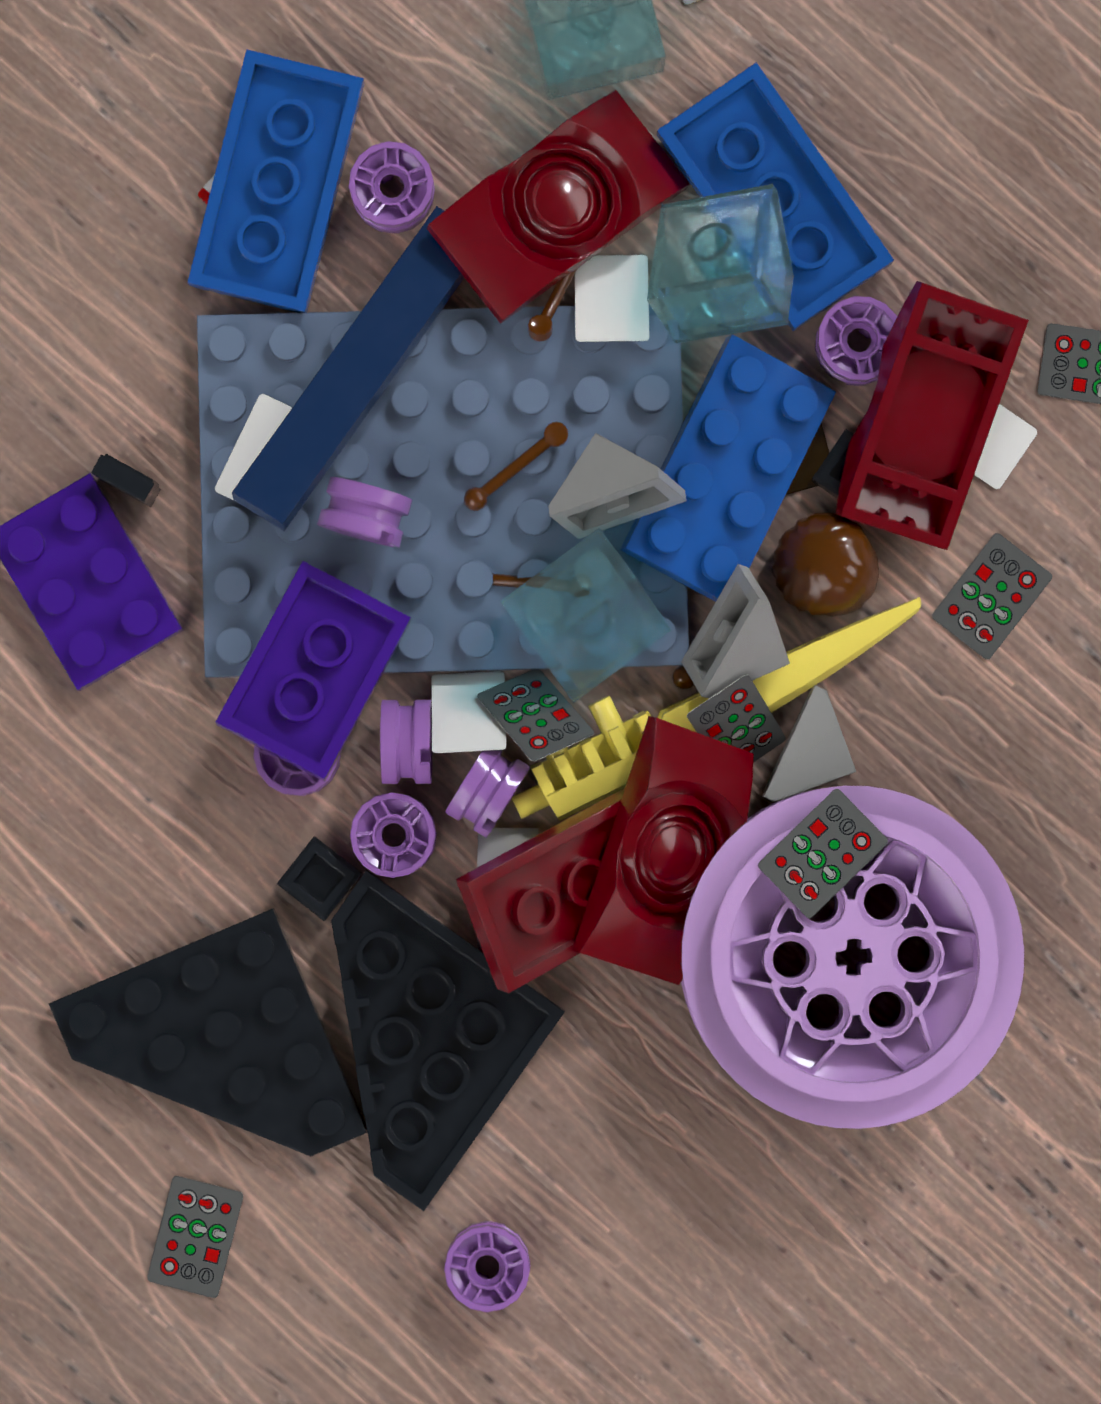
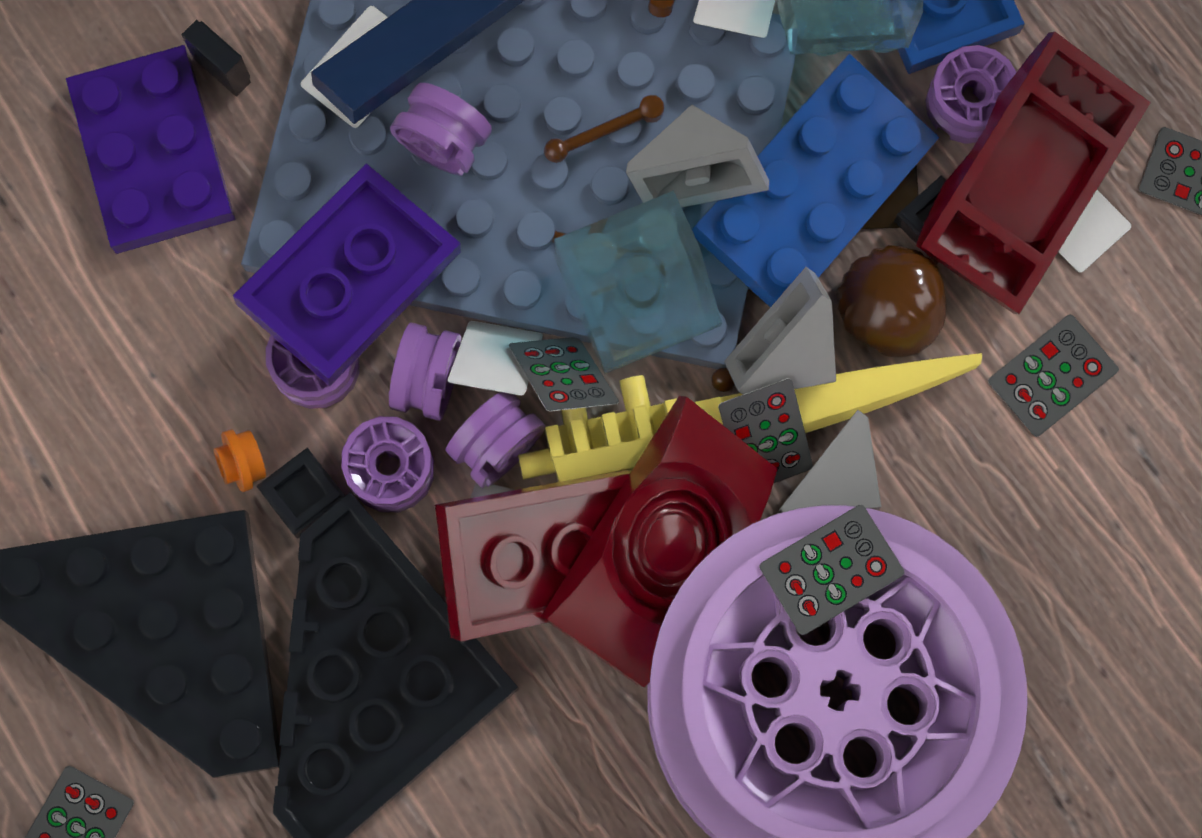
camera: 10 degrees right, 10 degrees down
(255, 863) = (239, 459): none -> orange plate

